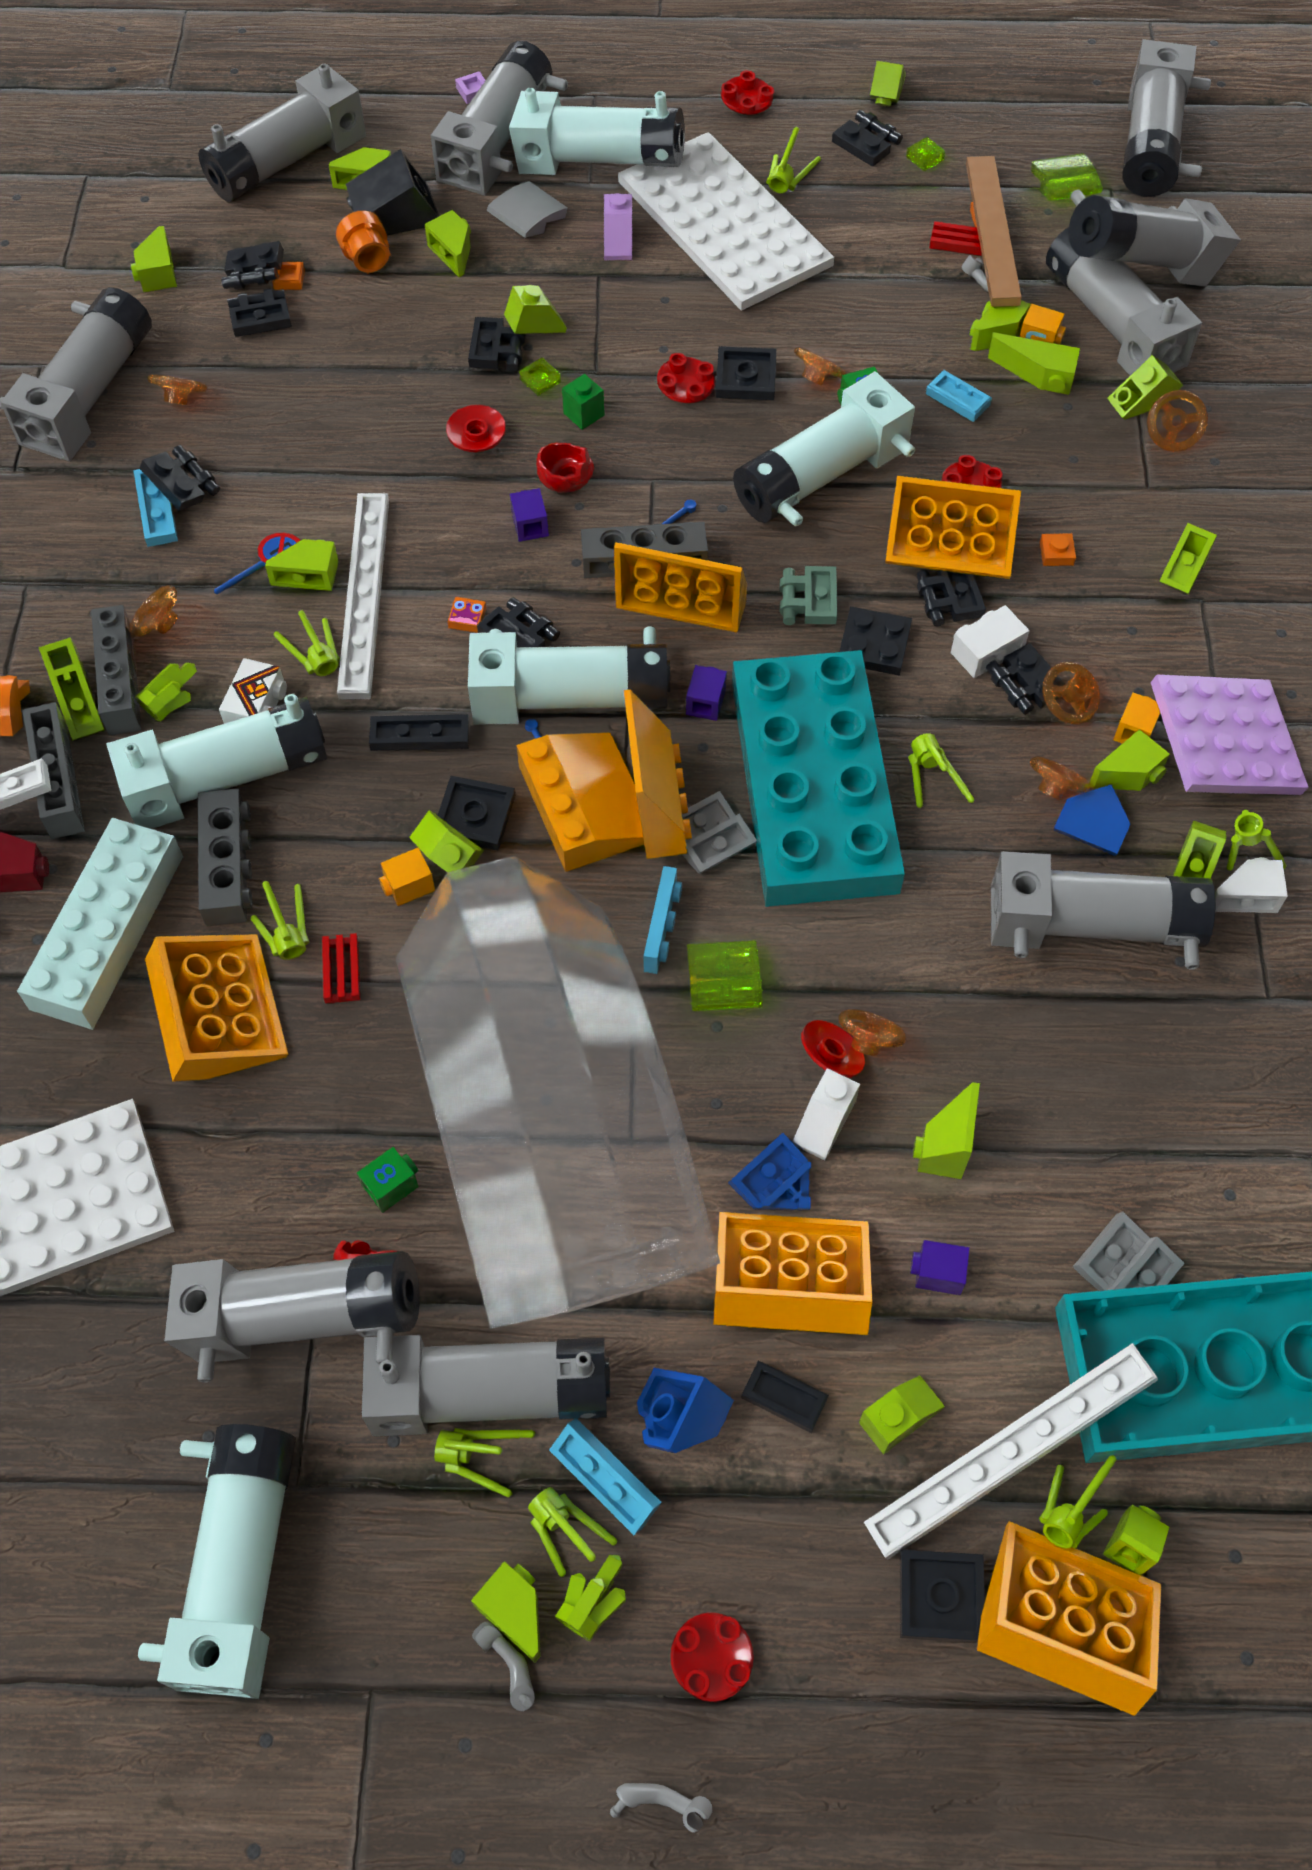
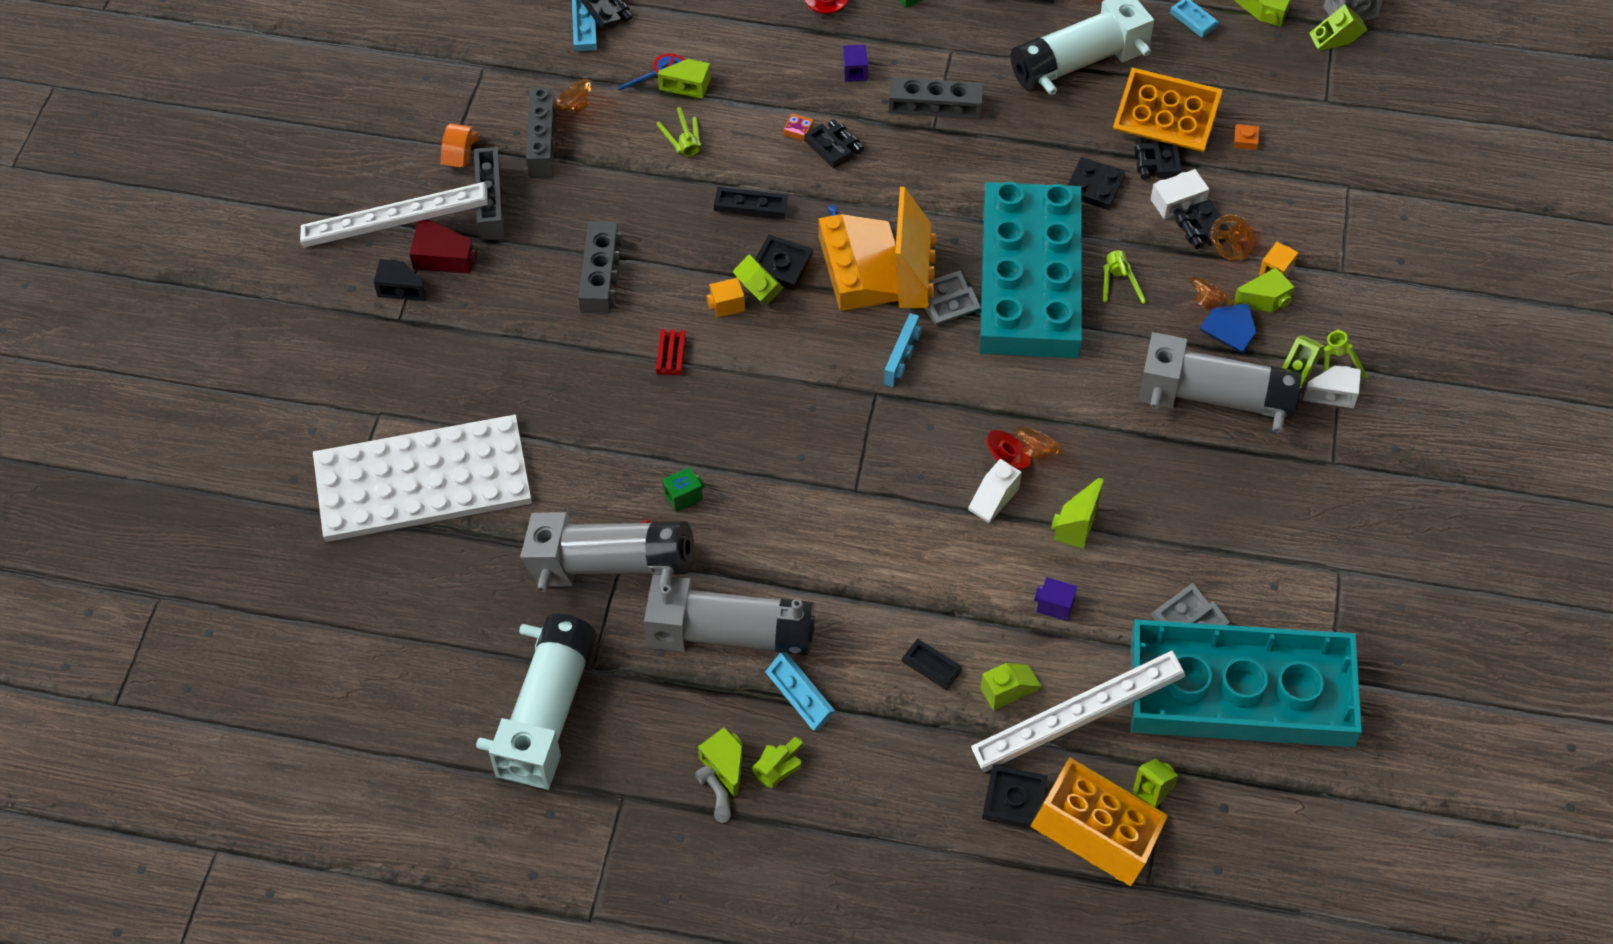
camera: 10 degrees right, 5 degrees down
(72, 688) = (508, 140): lime slope -> none
(101, 923) = (509, 298): light aqua brick -> none
(164, 692) = (573, 151): lime rock -> none
(164, 775) = (607, 199): light aqua piece -> none
(214, 1004) = (579, 362): light orange slope -> none
(253, 690) = (635, 163): white brick -> none
(287, 941) = (636, 328): lime plant -> none
(363, 597) = (725, 105): white tile -> none
(458, 1446) = (703, 660): lime plant -> none
(549, 1096) = (801, 442): clear windscreen -> none
(551, 1512) = (762, 708): lime plant -> none
(561, 677) = (824, 174): light aqua piece -> none
(564, 467) = (886, 32): red hair -> none
(647, 1793) = (802, 883): light grey piece -> none
(679, 587) = (956, 126): light orange slope -> none
(681, 1410) = (860, 657): blue slope -> none
(689, 506) = (975, 72): blue hinge -> none
(706, 692) = (963, 202): dark purple brick -> none
(712, 1656) = (852, 809): red dish -> none
(724, 975) = (940, 393): clear neon green slope -> none
(775, 1178) = (951, 528): blue slope -> none
(793, 1273) = (951, 588): light orange slope -> none
(819, 595) = (1059, 148): sand green plate -> none
(973, 472) = (1191, 72): red dish -> none
(1064, 1523) = (1107, 763): lime plant -> none
(1169, 412) = (1347, 40): clear orange piece -> none
(1188, 558) = (1341, 154): lime slope -> none
(1228, 735) = (1343, 281): lavender plate -> none

